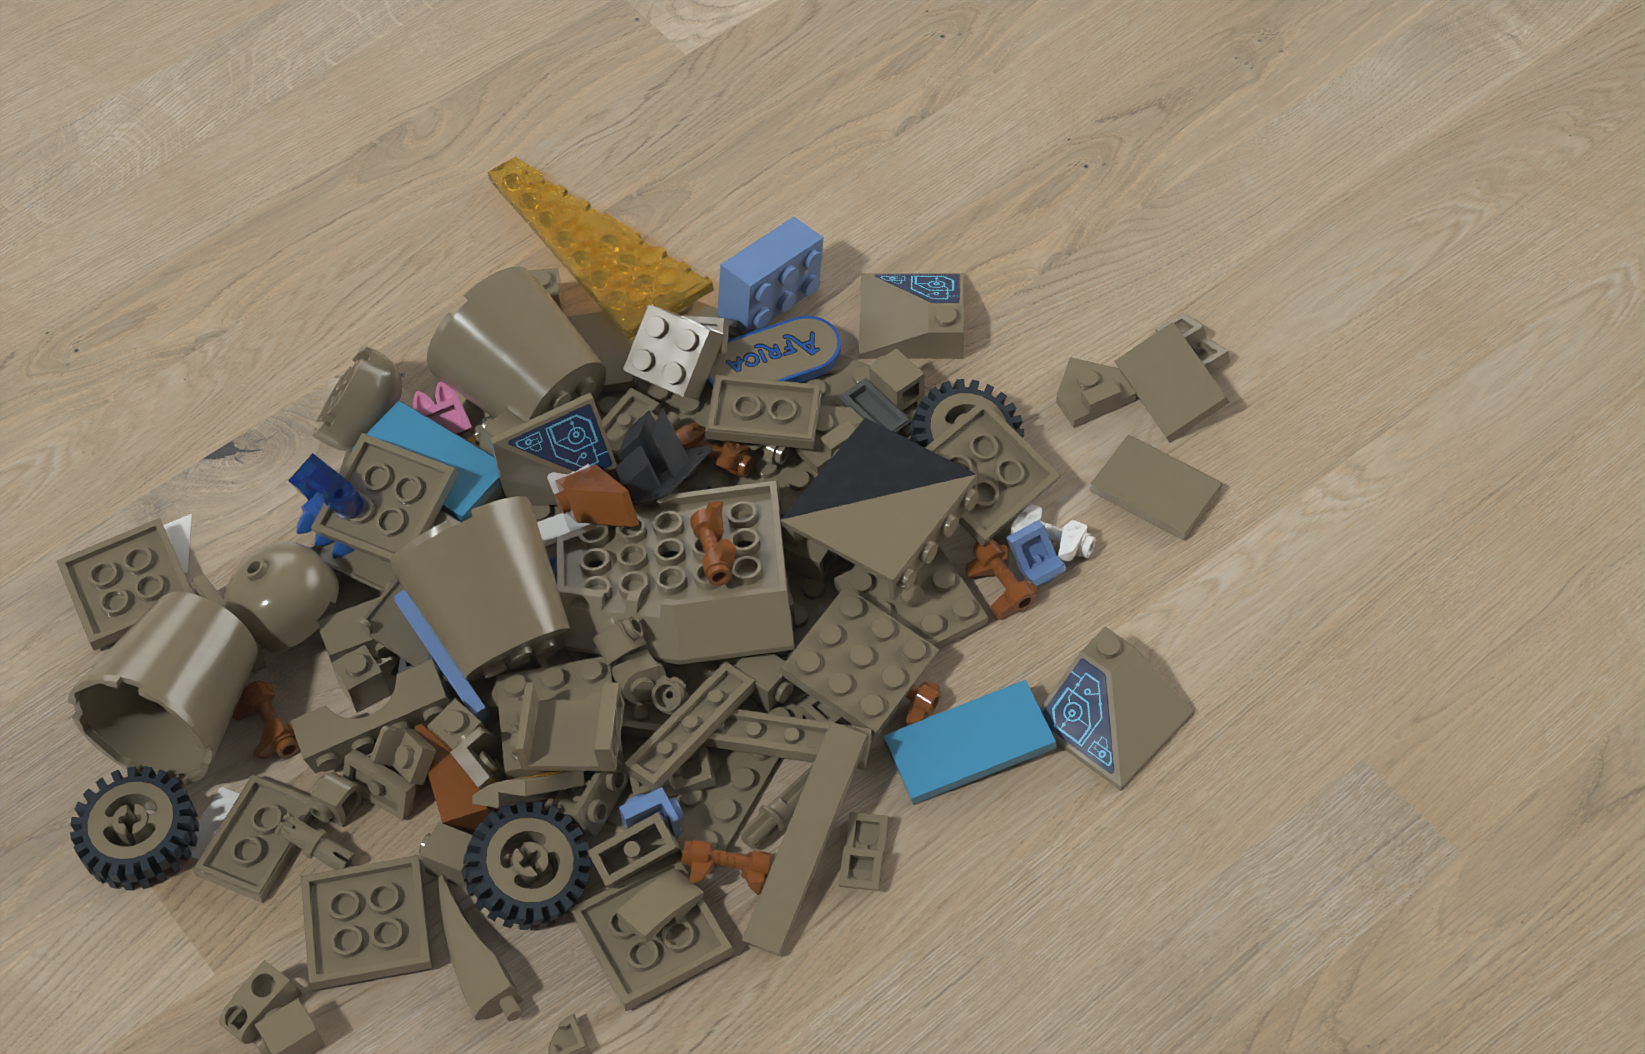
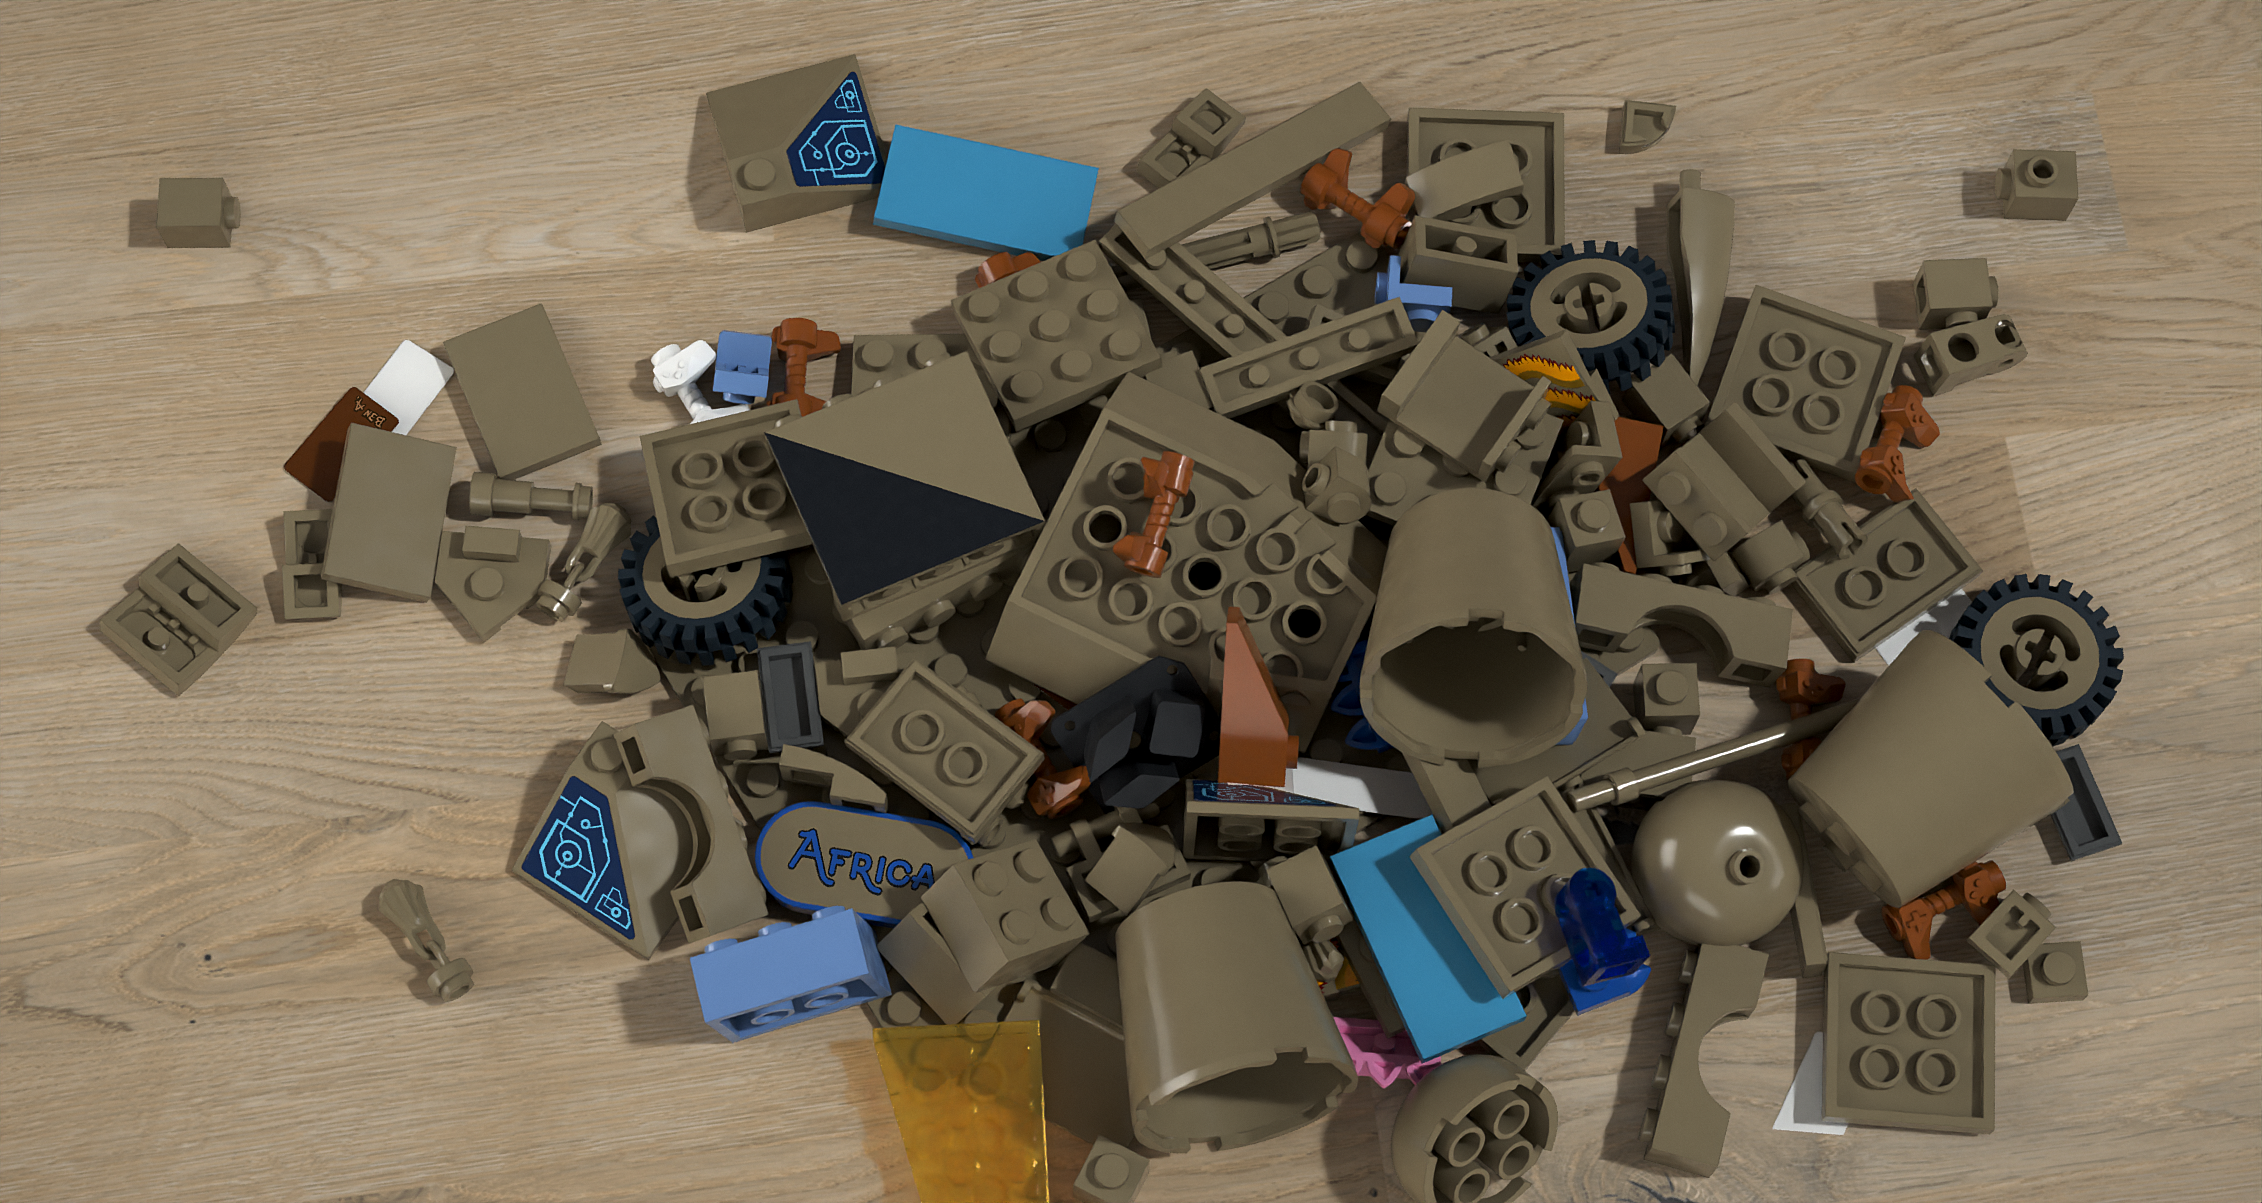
camera: 155 degrees left, 15 degrees up
(53, 669) = (2056, 973): none -> dark tan plate
(75, 764) = (2084, 820): none -> dark grey tile
(80, 659) = (2012, 932): none -> dark tan bracket
(239, 480) = (1688, 1123): none -> dark tan arch
(288, 931) = (1883, 466): none -> dark orange piece
(357, 594) = (1626, 784): none -> dark tan bar
(387, 801) = (1724, 481): none -> dark tan panel
(618, 412) = (1132, 864): none -> dark tan tile
(833, 377) = (846, 784): none -> dark tan slope
(908, 326) = (675, 759): none -> dark tan arch
(991, 372) = (611, 664): none -> dark tan tile
(1002, 226) = (407, 908): none -> dark tan piece
(1047, 439) = (604, 530): none -> dark tan piece
(1125, 423) = (495, 494): none -> dark tan piece
(1225, 452) = (409, 384): none -> white sticker
(1237, 417) = (320, 456): none -> reddish brown sticker
(1238, 283) = (178, 619): none -> dark tan slope
(1422, 467) = (196, 213): none -> dark tan brick

